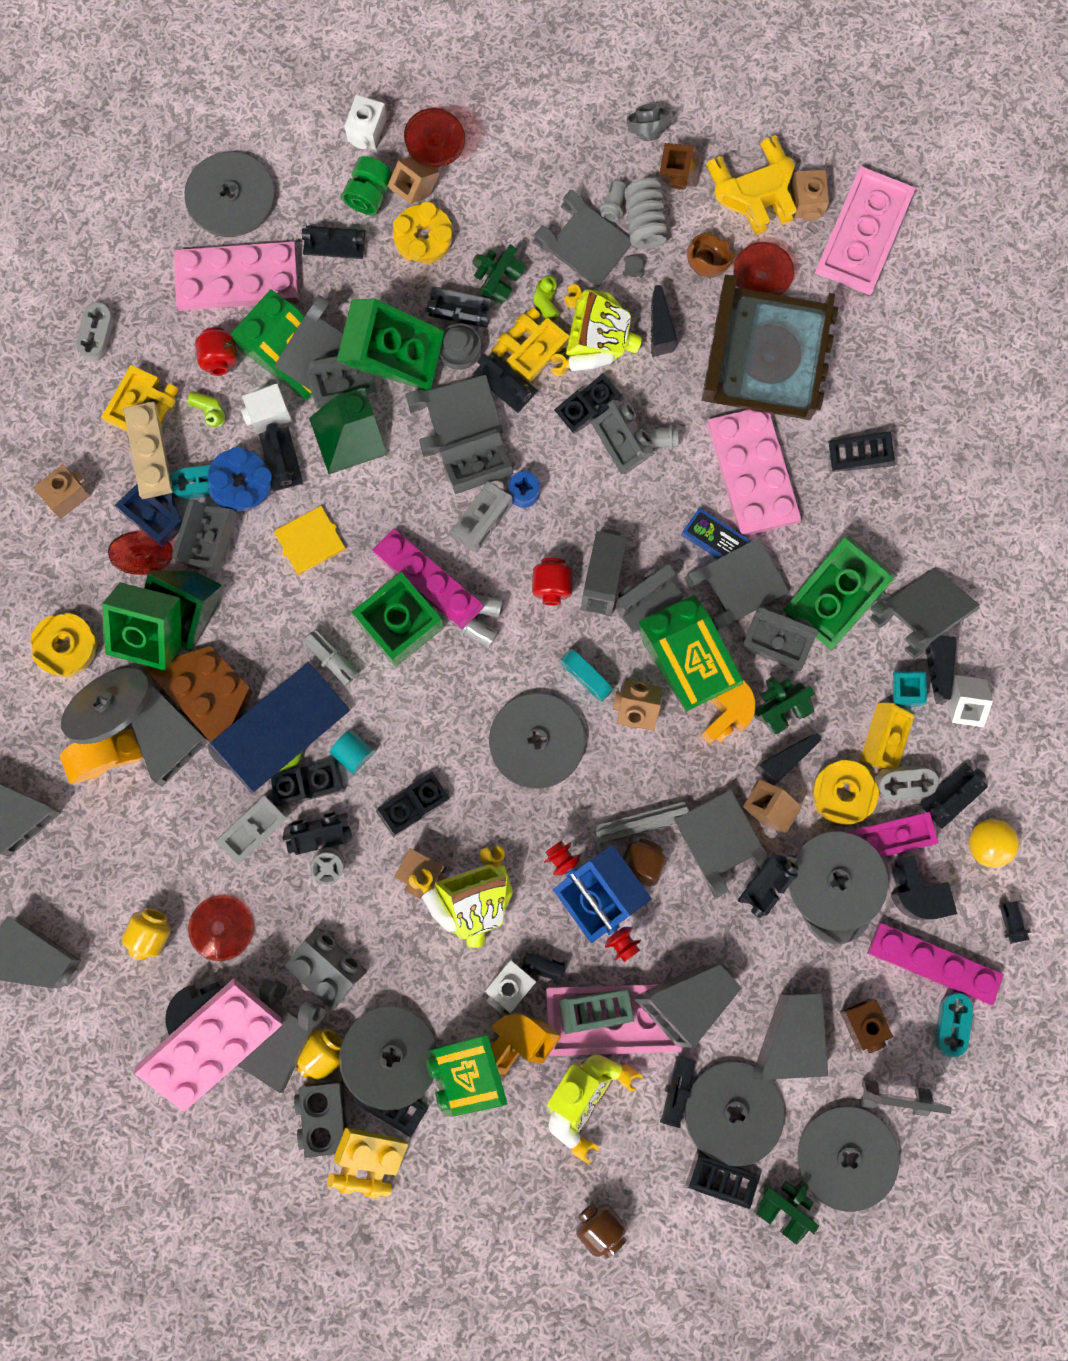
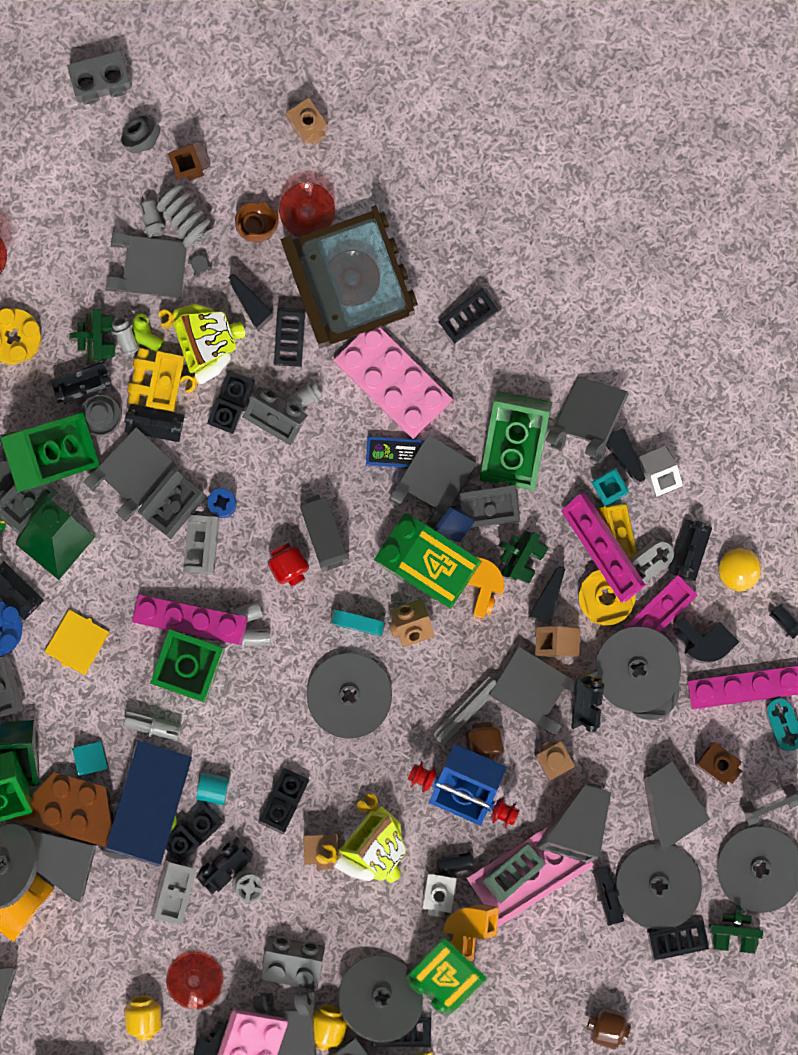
camera: 30 degrees left, 5 degrees up
(252, 654) = (90, 758): none -> teal slope
(526, 286) = (123, 330): none -> light grey pin
(579, 1097) = (537, 942): neon yellow torso -> none
(643, 47) = (98, 69): none -> dark grey brick
(648, 597) = (372, 533): dark grey bracket -> none
(691, 354) = (292, 313): none -> black slope
(702, 921) = (554, 759): none -> medium nougat brick
(736, 633) = (454, 524): none -> dark blue slope
(757, 189) = (263, 140): yellow connector -> none
(865, 230) = (368, 125): bright pink plate -> none
(870, 742) = (603, 547): none -> dark pink plate

